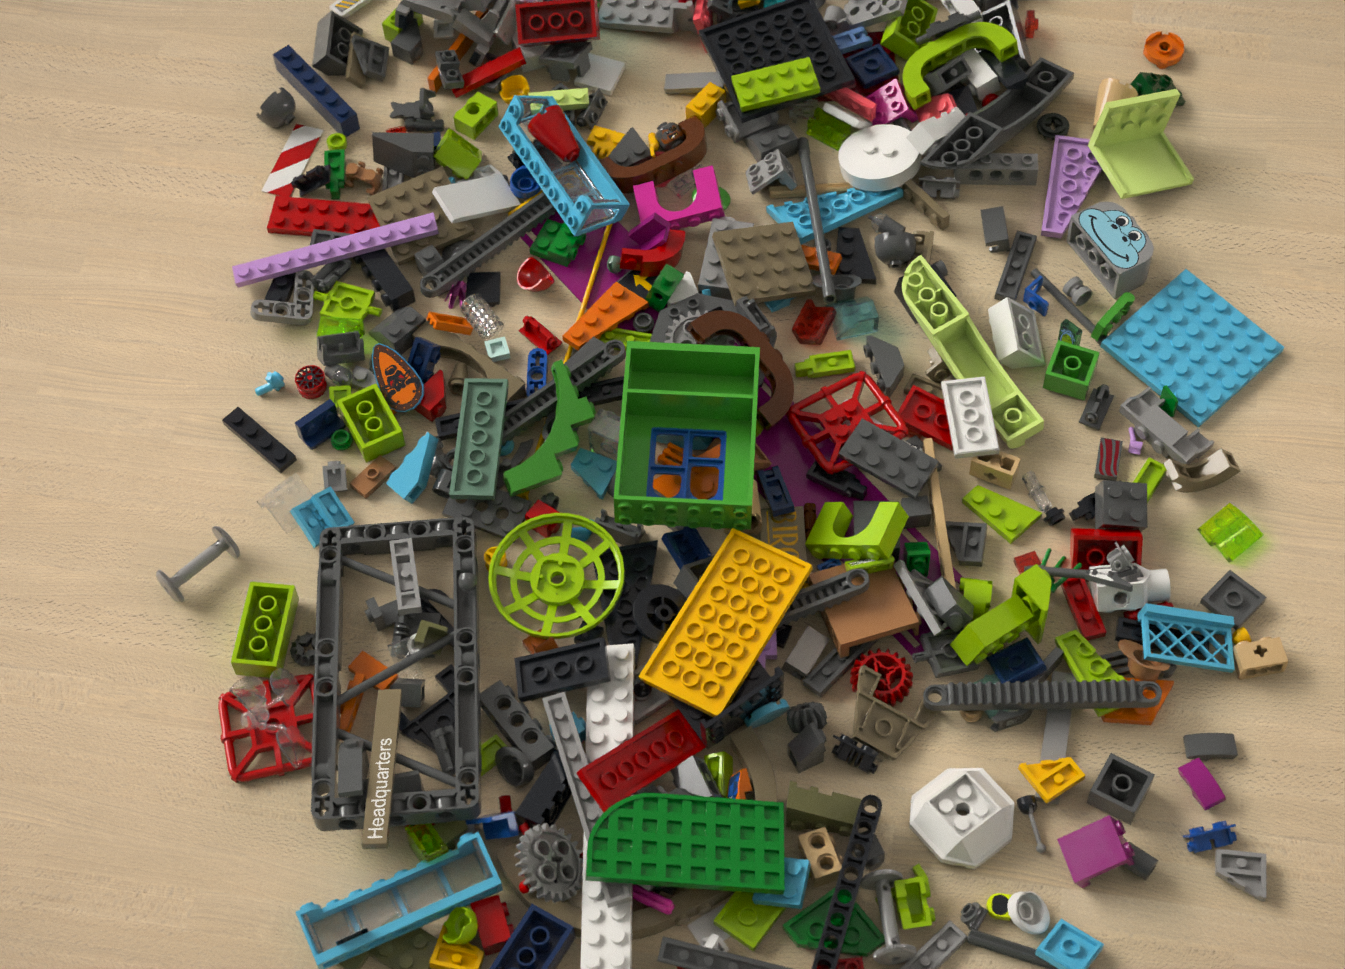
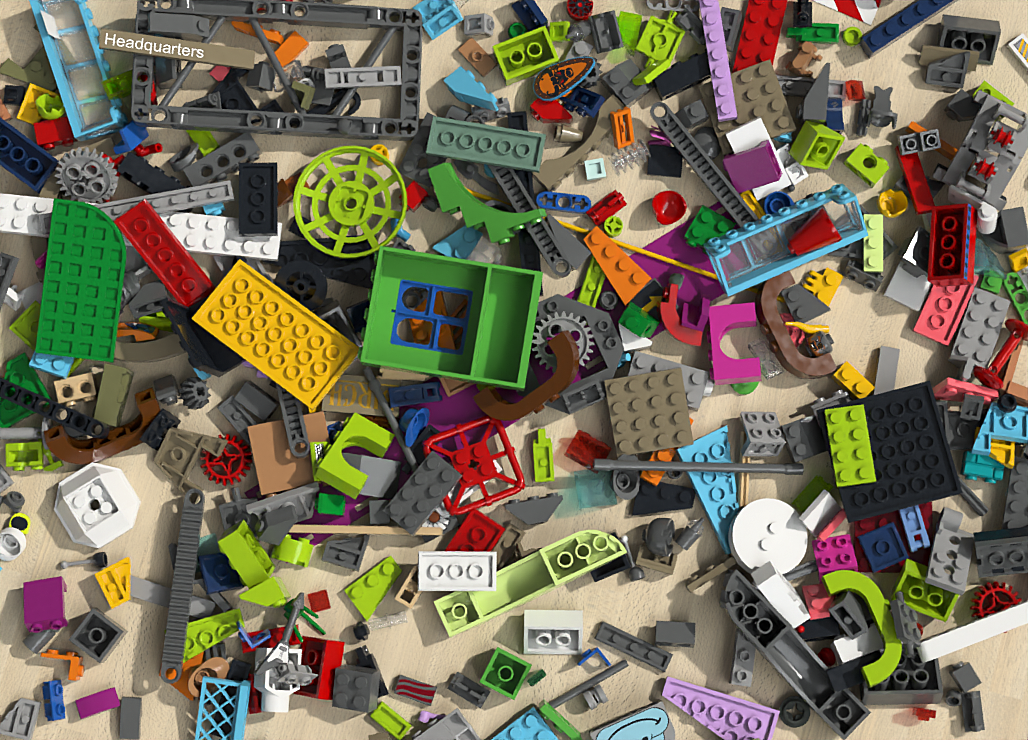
camera: 95 degrees right, 25 degrees up
(386, 299) = (651, 72): none -> lime tile
(406, 745) = (219, 72): none -> coral tile
(487, 198) = (752, 167): none -> magenta panel
(557, 322) = (613, 223): none -> lime wheel
(624, 44) = (943, 312): none -> coral plate
(771, 527) = (374, 386): none -> dark grey bar
(809, 487) = (413, 424): none -> blue piece
(893, 824) = (118, 439): none -> reddish brown arch
(1085, 621) = (253, 642): none -> blue bracket
(1162, 813) = (76, 667): none -> orange bracket

